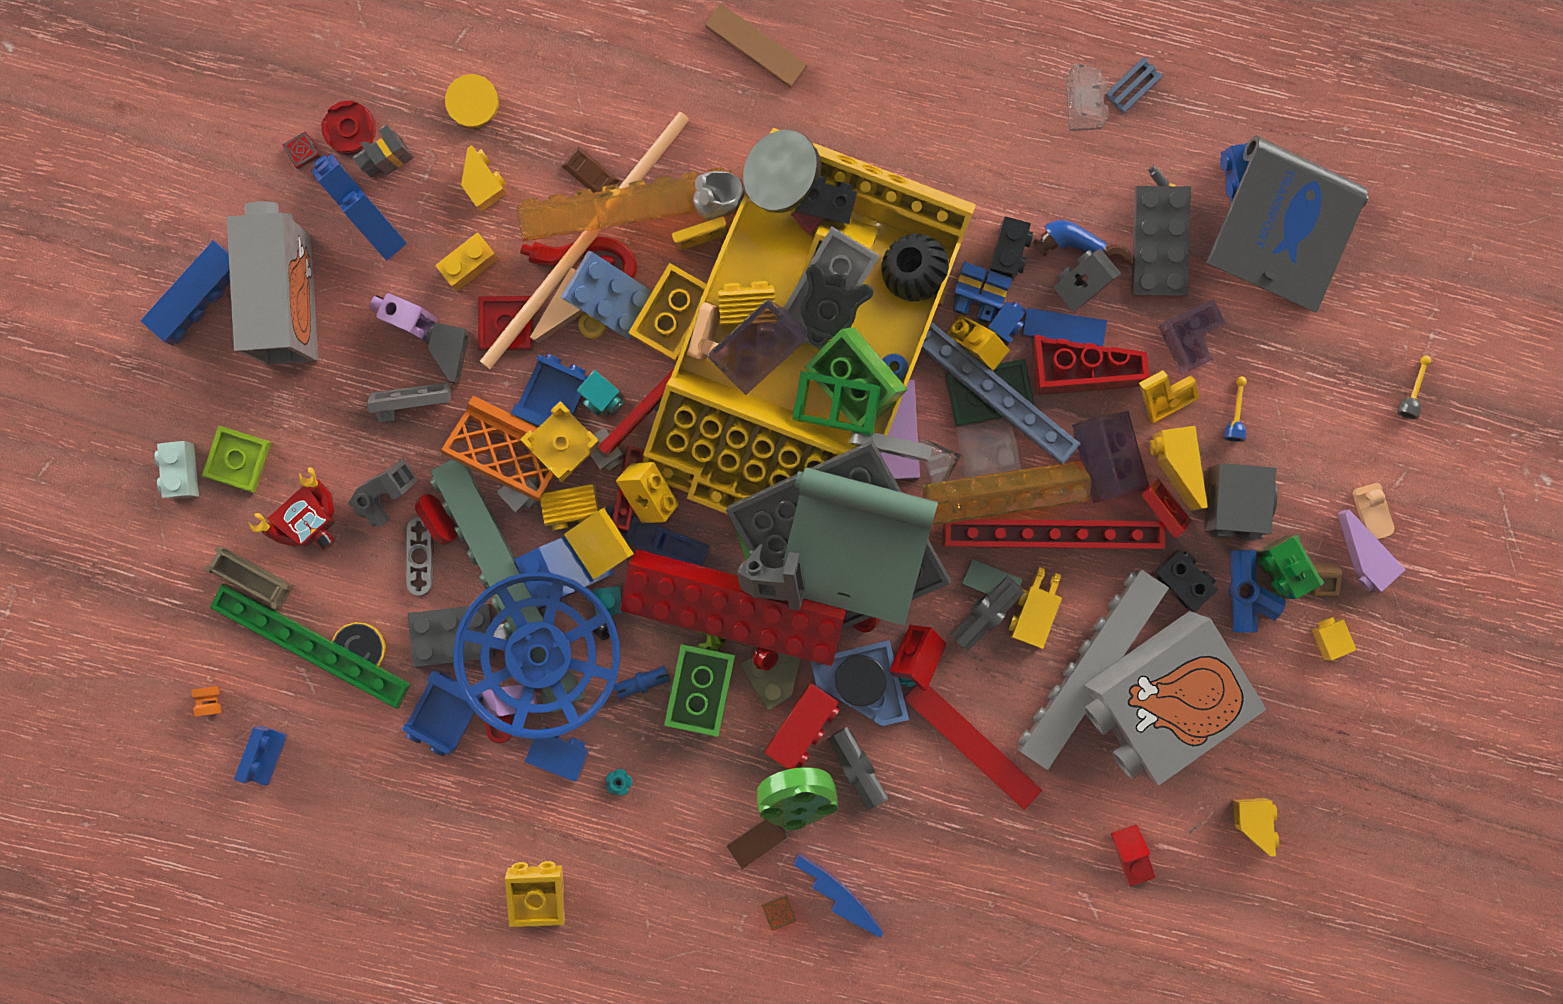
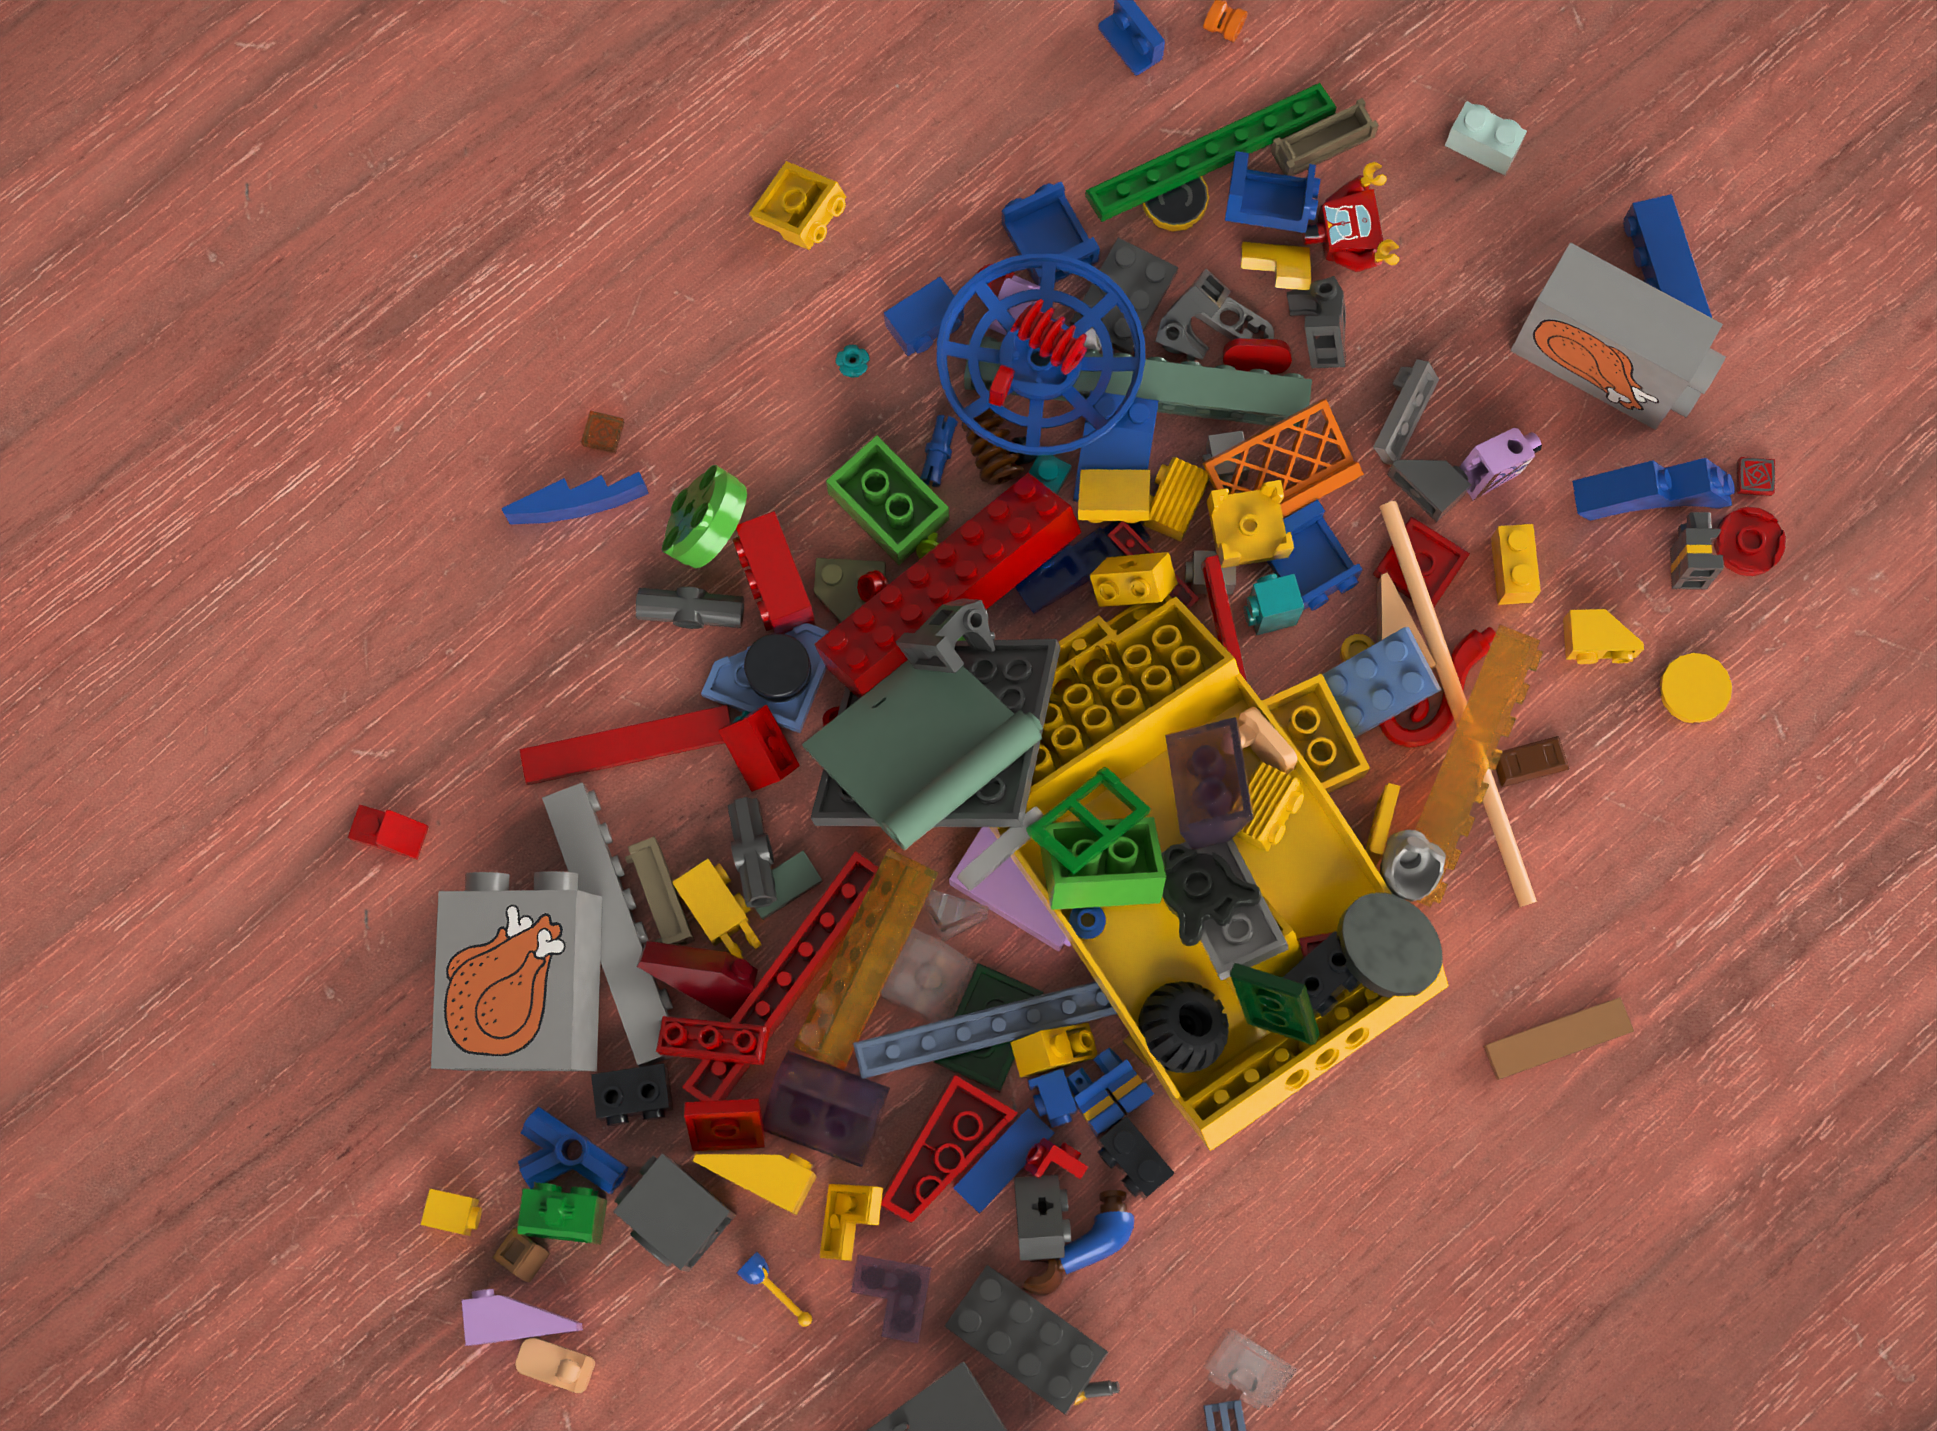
camera: 120 degrees right, 10 degrees down
(236, 459) = (1459, 204): lime tile -> none
(317, 583) = (1271, 198): none -> blue panel
(355, 546) = (1288, 262): none -> yellow tile
(424, 579) = (1175, 328): none -> dark grey tile
(524, 653) = (1050, 336): none -> red piece
(578, 663) = (1001, 385): none -> red tile
(627, 635) = (991, 459): none -> reddish brown piece
(756, 842) = (689, 453): reddish brown tile -> none
(869, 214) = (1275, 1003): none -> dark green tile
(1043, 300) = (1044, 1152): none -> red bracket
(1054, 650) = (660, 892): none -> dark tan container
(1086, 586) = (703, 974): none -> dark red slope
(1117, 536) = (731, 1044): none -> red tile
(1256, 822) = (324, 983): yellow slope -> none

